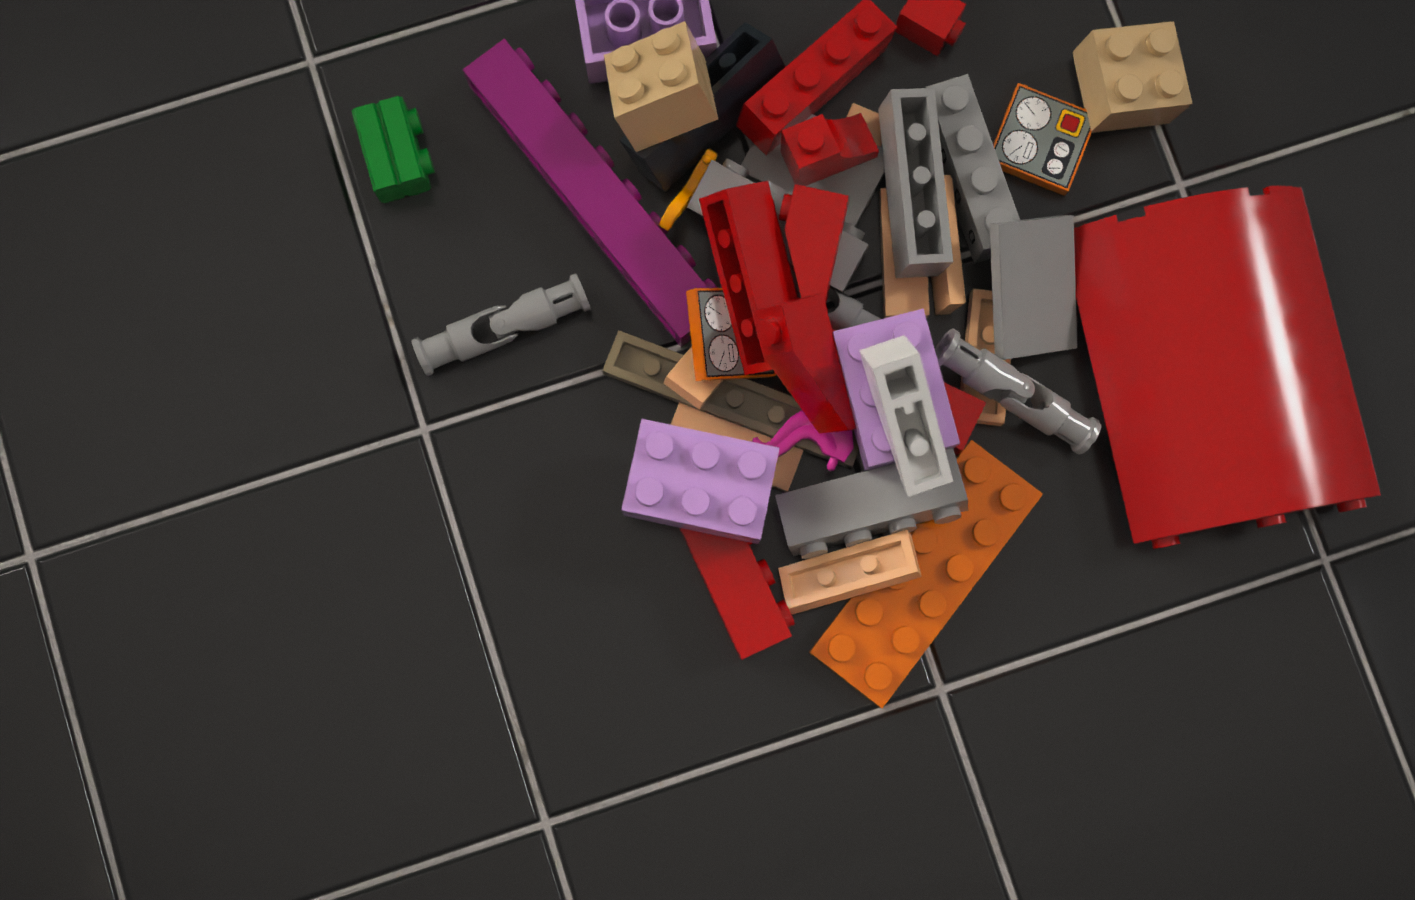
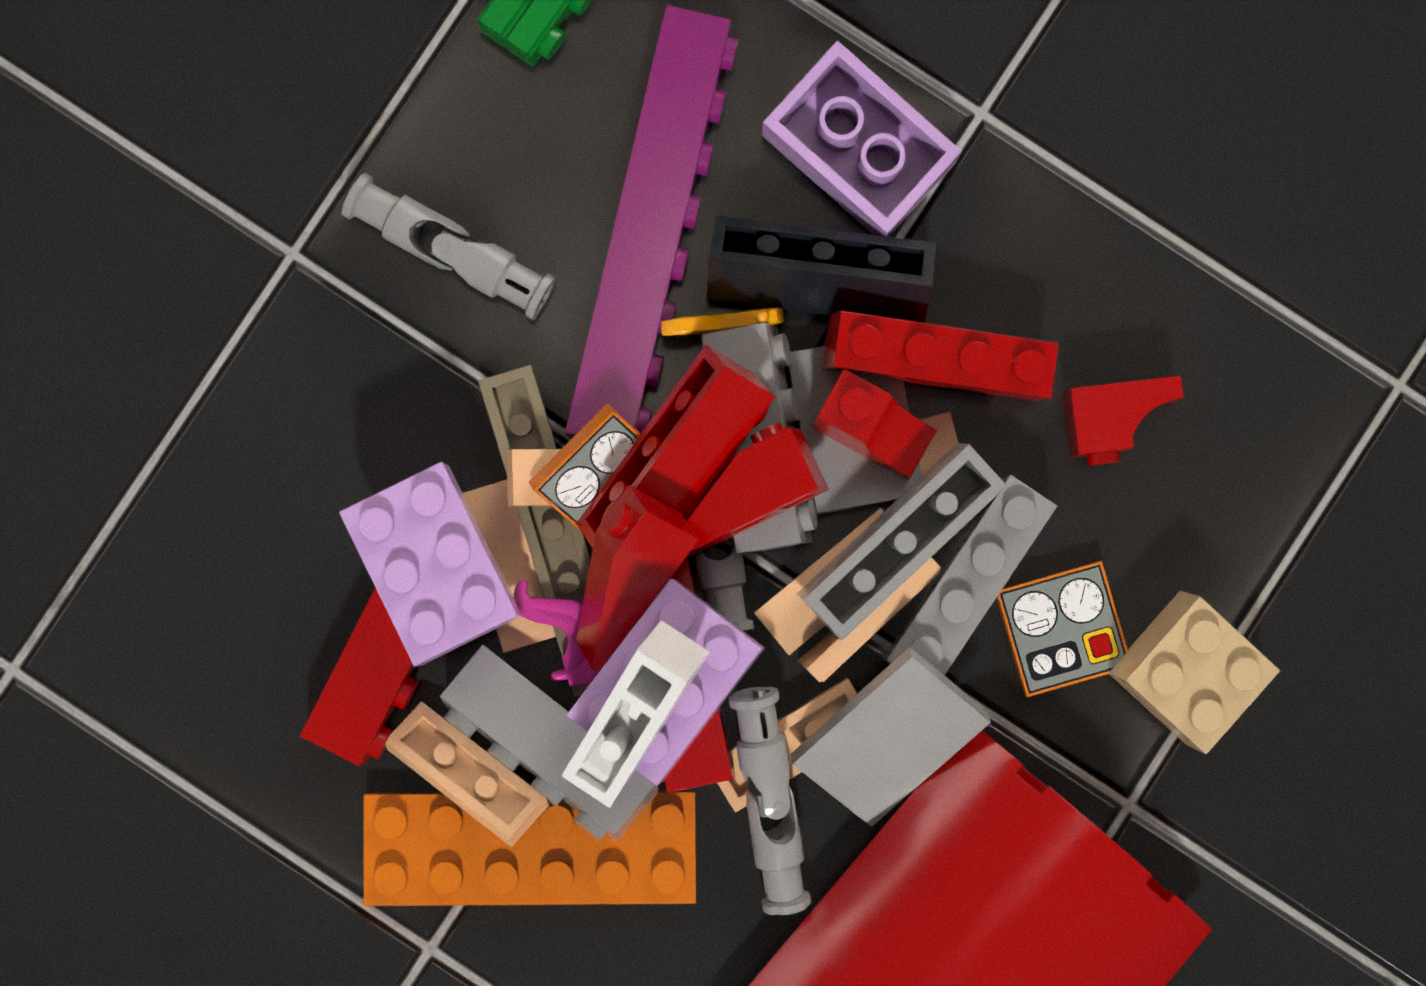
camera: 55 degrees right, 5 degrees up
(660, 87) = (792, 215): tan brick -> none

